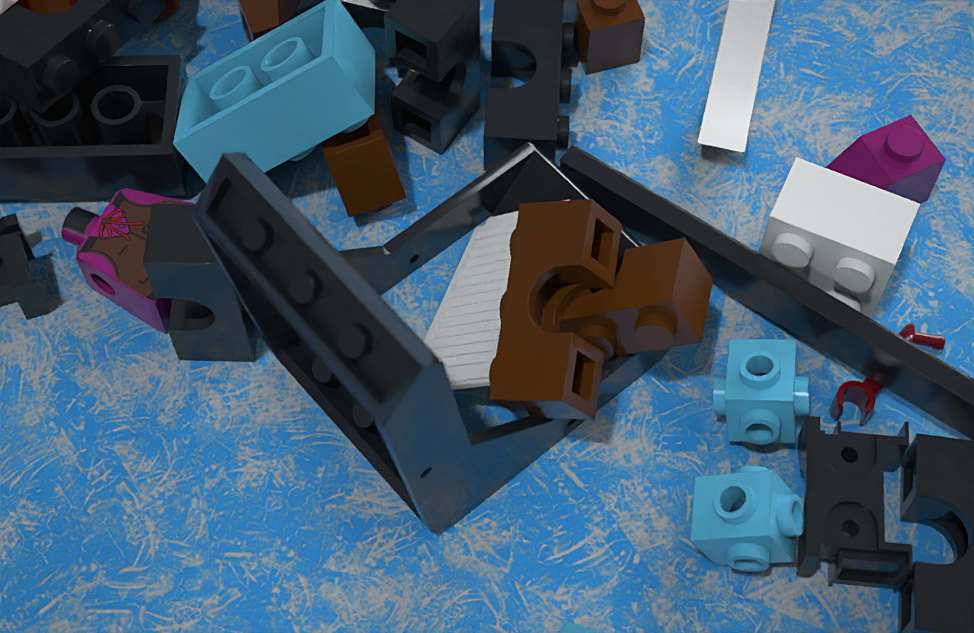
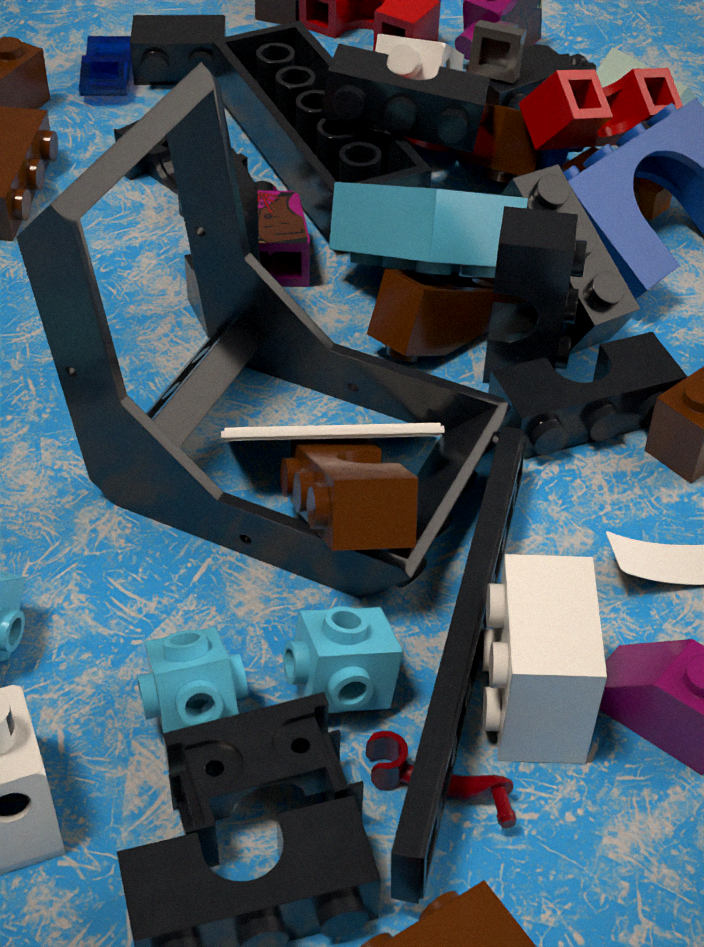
camera: 65 degrees right, 15 degrees down
(554, 256) = (337, 409): reddish brown arch -> none

